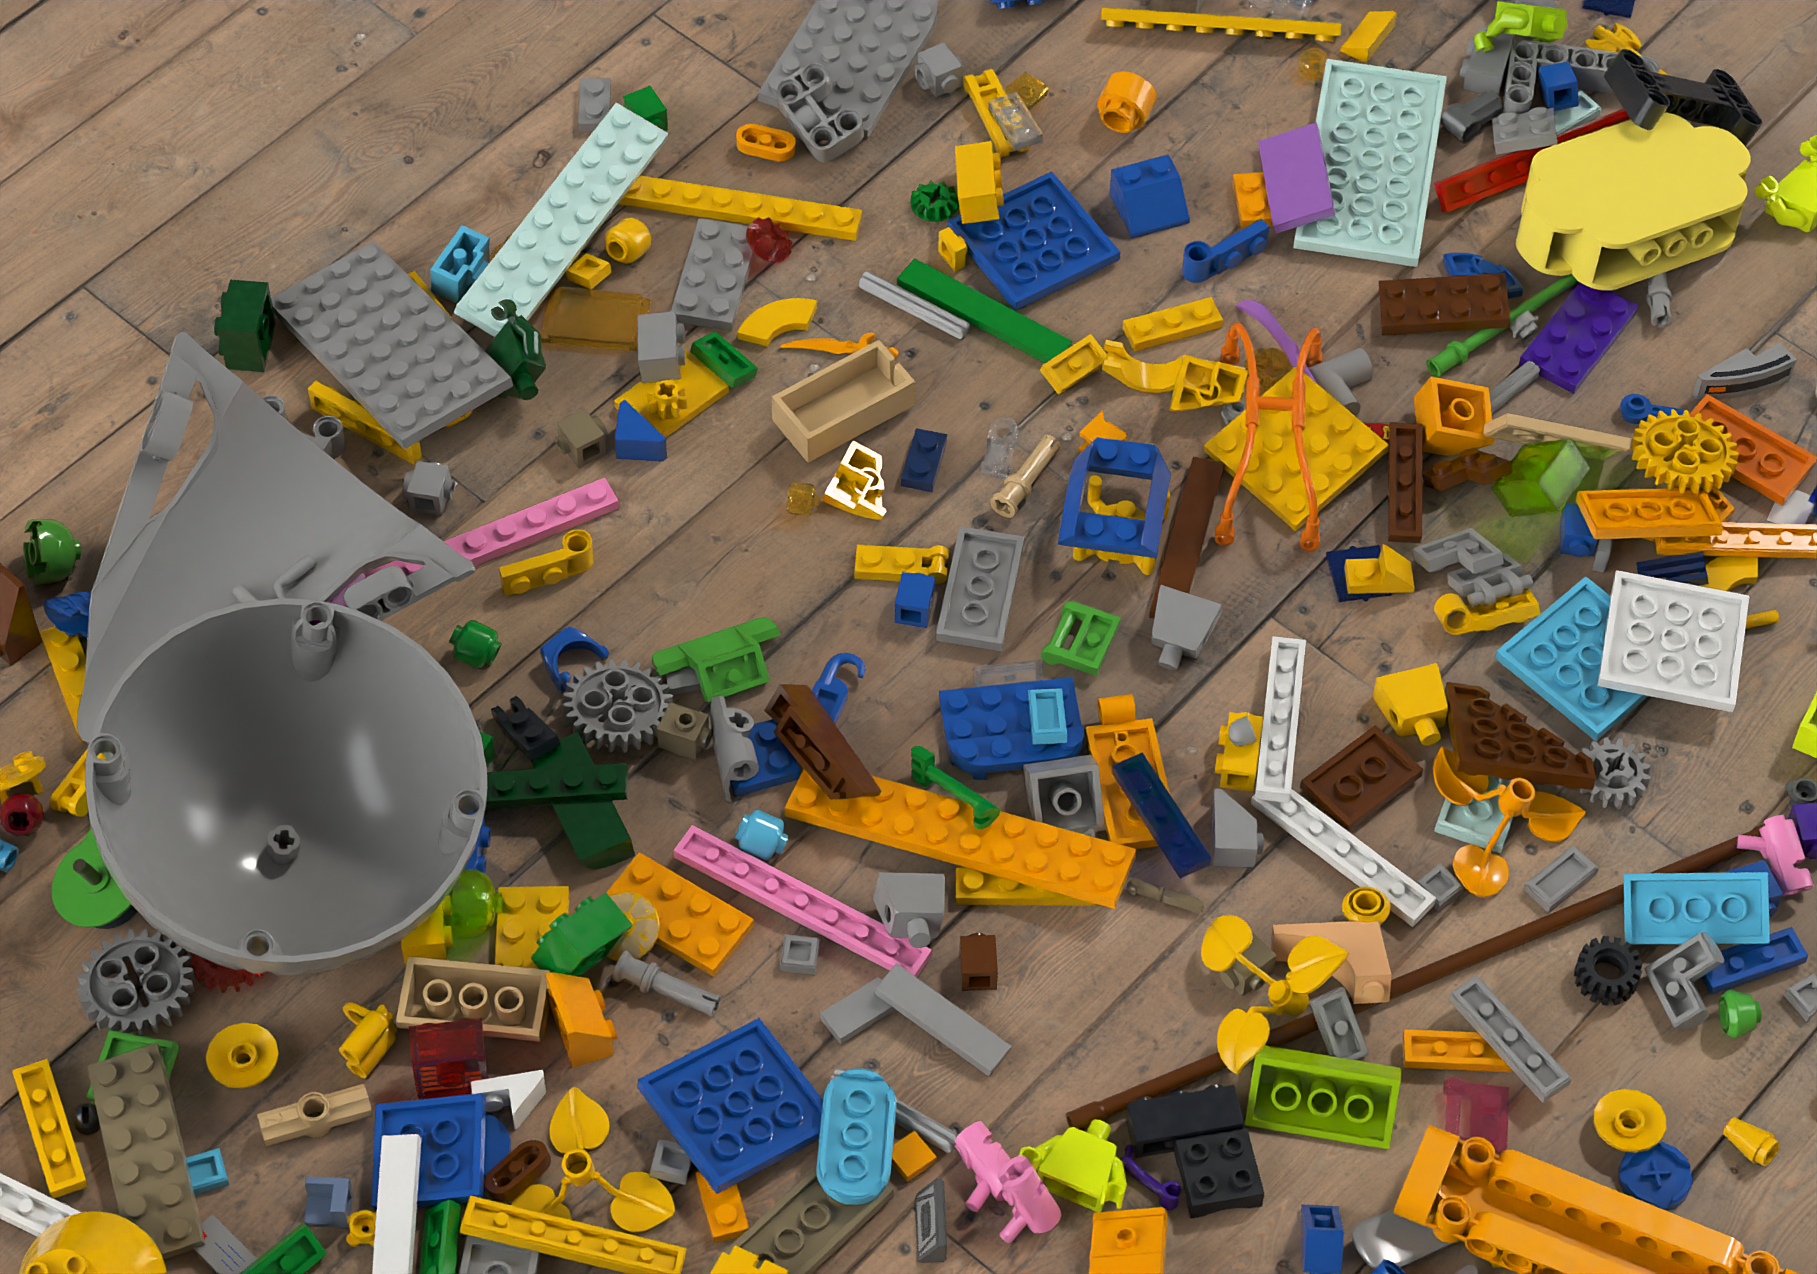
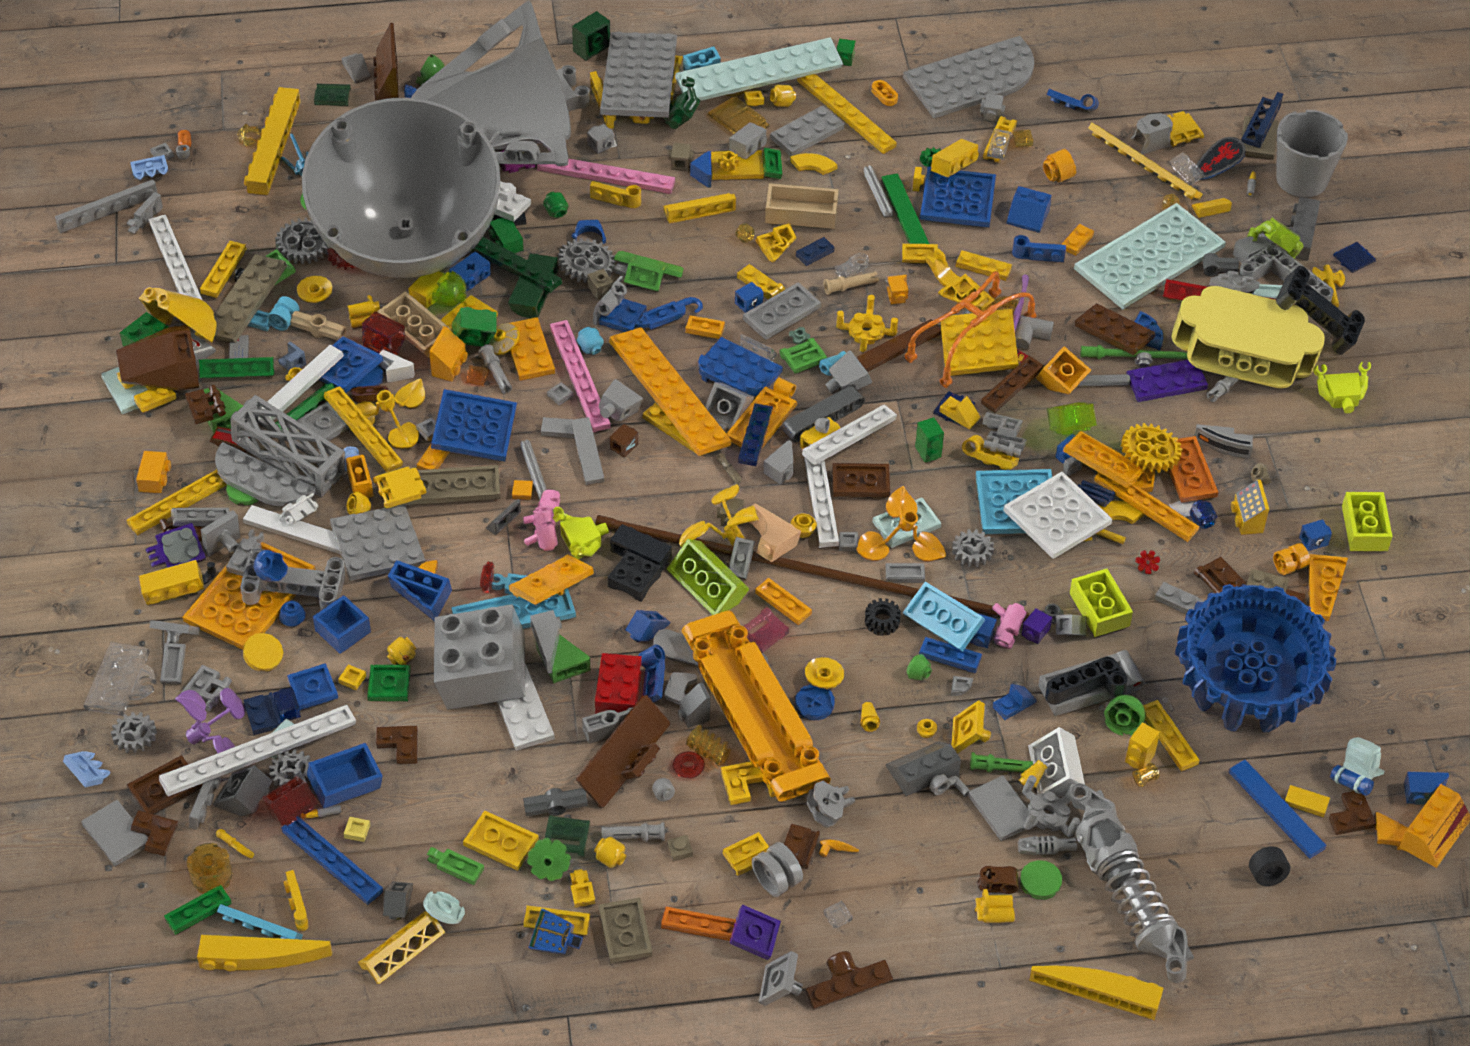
camera: 40 degrees right, 5 degrees down
(237, 1135) = (282, 313): none -> medium azure wheel
(526, 730) = (539, 245): black hinge -> none
(593, 102) = (834, 32): light grey plate -> none
(647, 1016) = (477, 375): none -> clear orange slope
(690, 507) = (700, 208): none -> yellow fence
(763, 246) = (835, 129): clear red gear -> none
(808, 119) = (911, 82): light grey beam -> none
(818, 744) = (646, 320): reddish brown wedge -> none
(836, 346) = (823, 184): light orange piece -> none
(856, 1137) = (505, 465): medium azure tile -> none
(900, 692) = (705, 327): none -> light orange plate
(926, 773) = (682, 384): green hinge -> none
(1039, 617) = (799, 335): none -> sand green plate
(1047, 716) = (750, 369): medium azure tile -> none
(1113, 532) = (898, 308): blue wedge -> none
(1133, 626) = (826, 363): none -> medium azure cone
(1167, 1192) = (606, 568): dark purple piece -> none
(1205, 712) = (834, 407): none -> dark grey beam
(1296, 178) = (1103, 240): medium lavender tile -> none
(1398, 645) = (929, 439): none -> green brick
(1413, 702) = (918, 467): yellow torso -> none
(1470, 465) = (1049, 397): reddish brown plate -> none
(1502, 745) = (934, 503): reddish brown plate -> none
(1509, 1039) = (807, 609): light grey tile -> none
(1531, 430) = (1100, 408): tan tile -> none
(1558, 86) = (1273, 275): blue brick -> none
(1638, 407) = (1159, 420): blue plate -> none
(1674, 978) = (906, 637): light grey brick -> none

